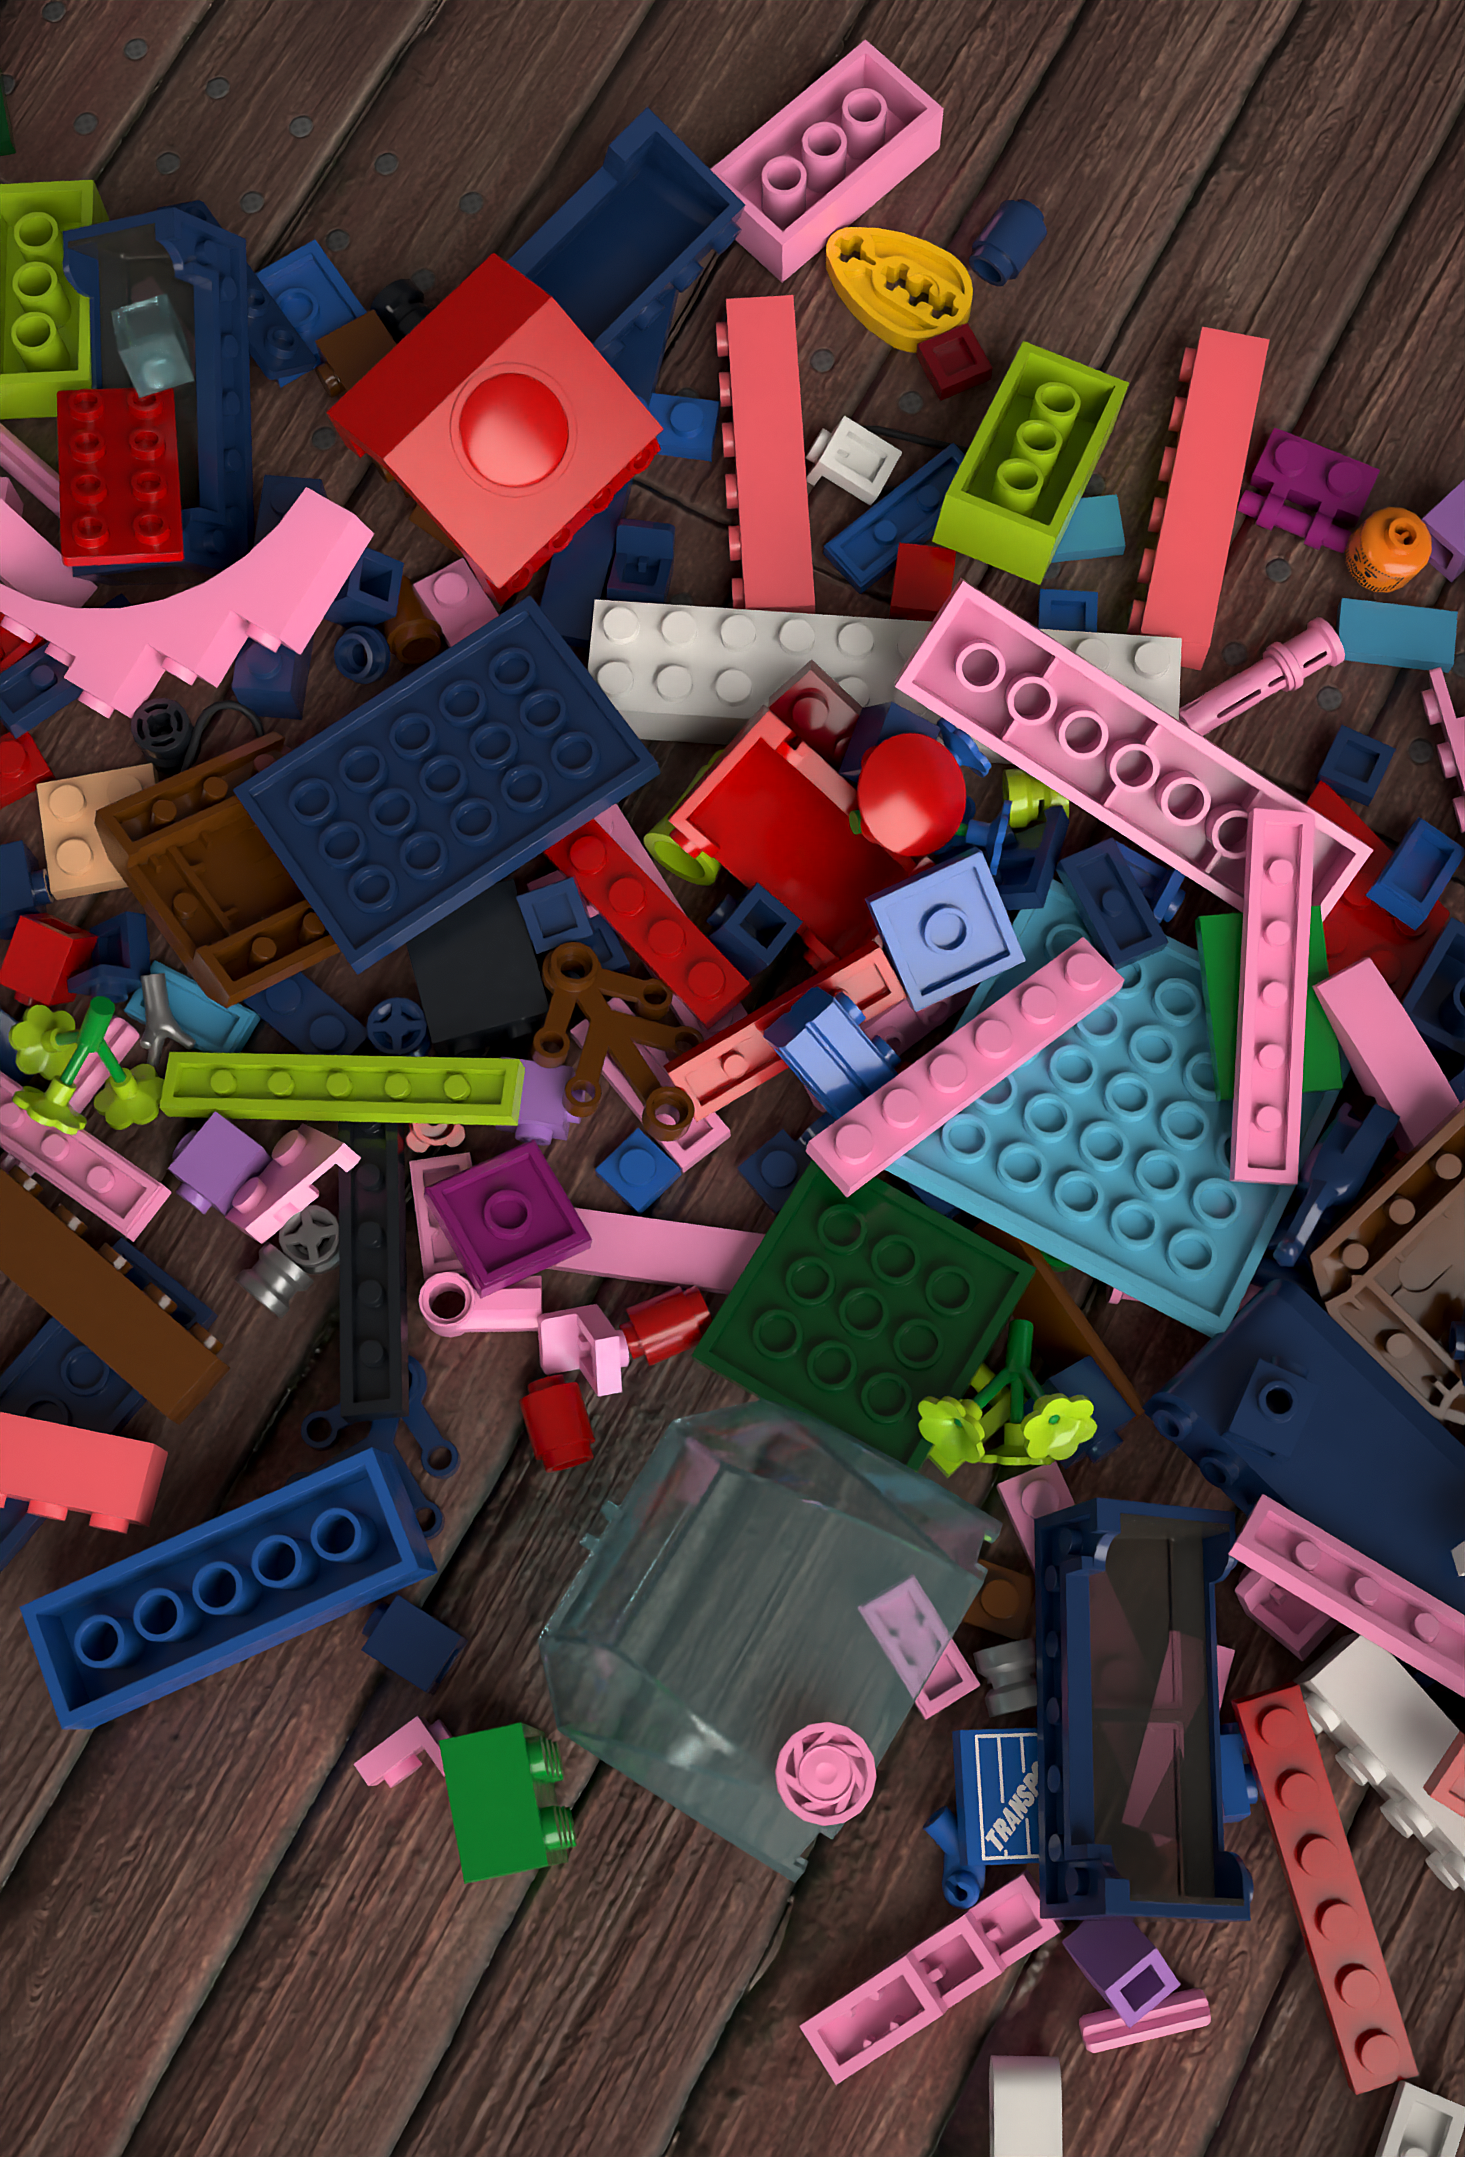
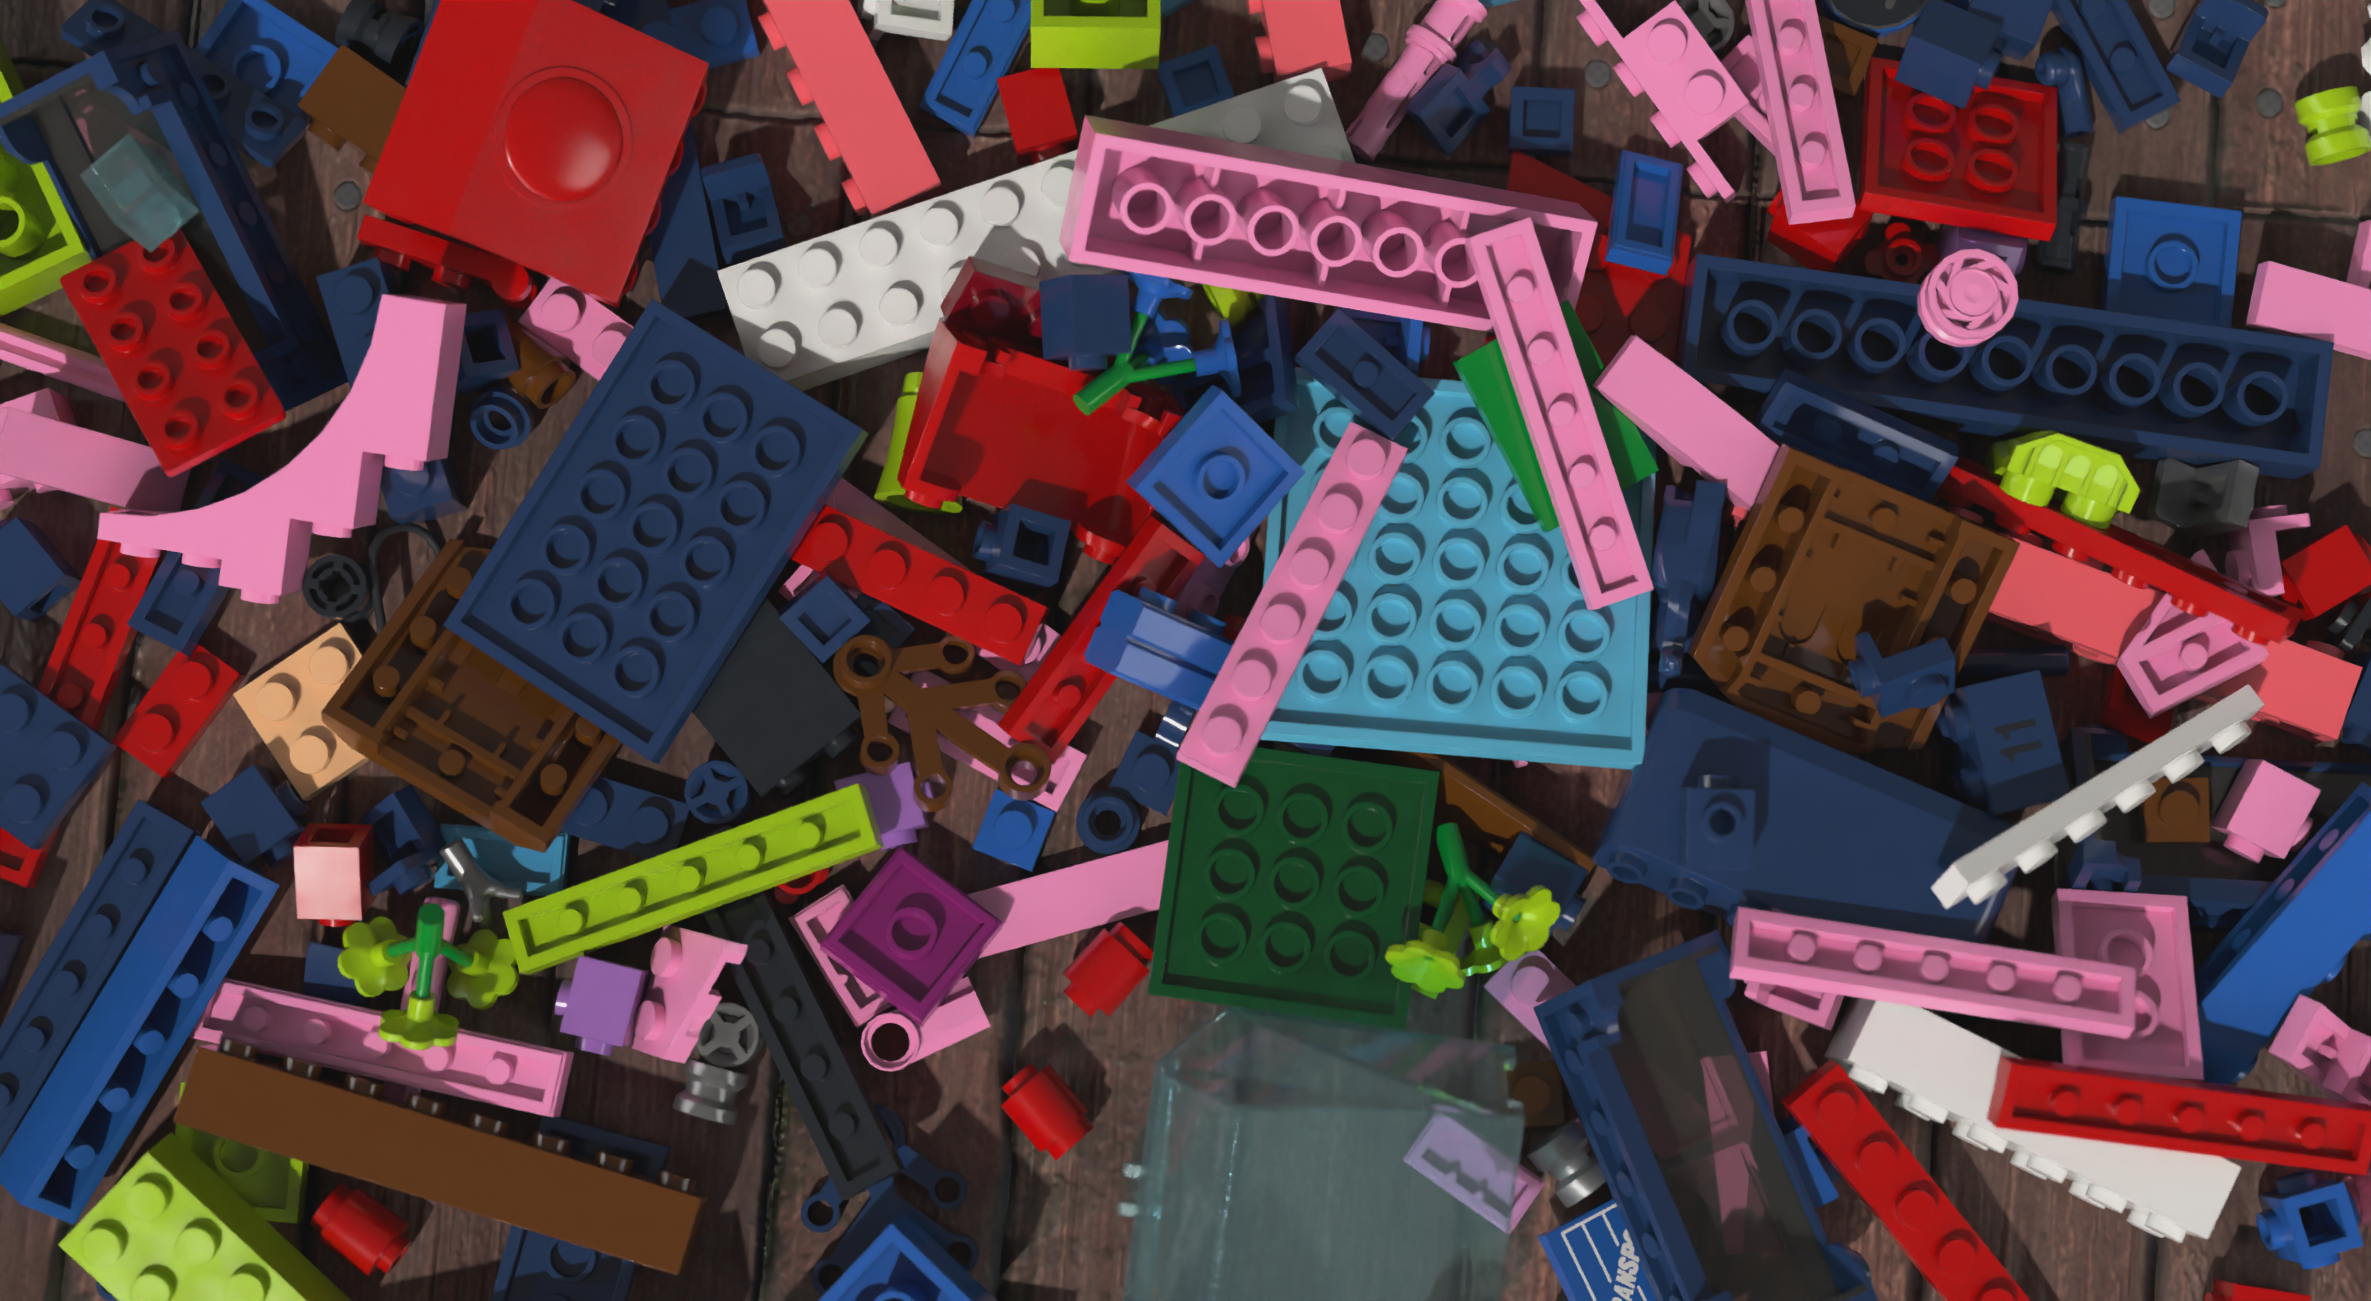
camera: 30 degrees left, 10 degrees up
(379, 512) = (451, 262): none -> red plate
(583, 1341) = (1038, 1020): bright pink bracket -> none
(717, 1181) = (1102, 802): none -> dark blue plate
(910, 794) = (1128, 360): red dish -> none
(1284, 717) = (1453, 100): none -> dark blue plate

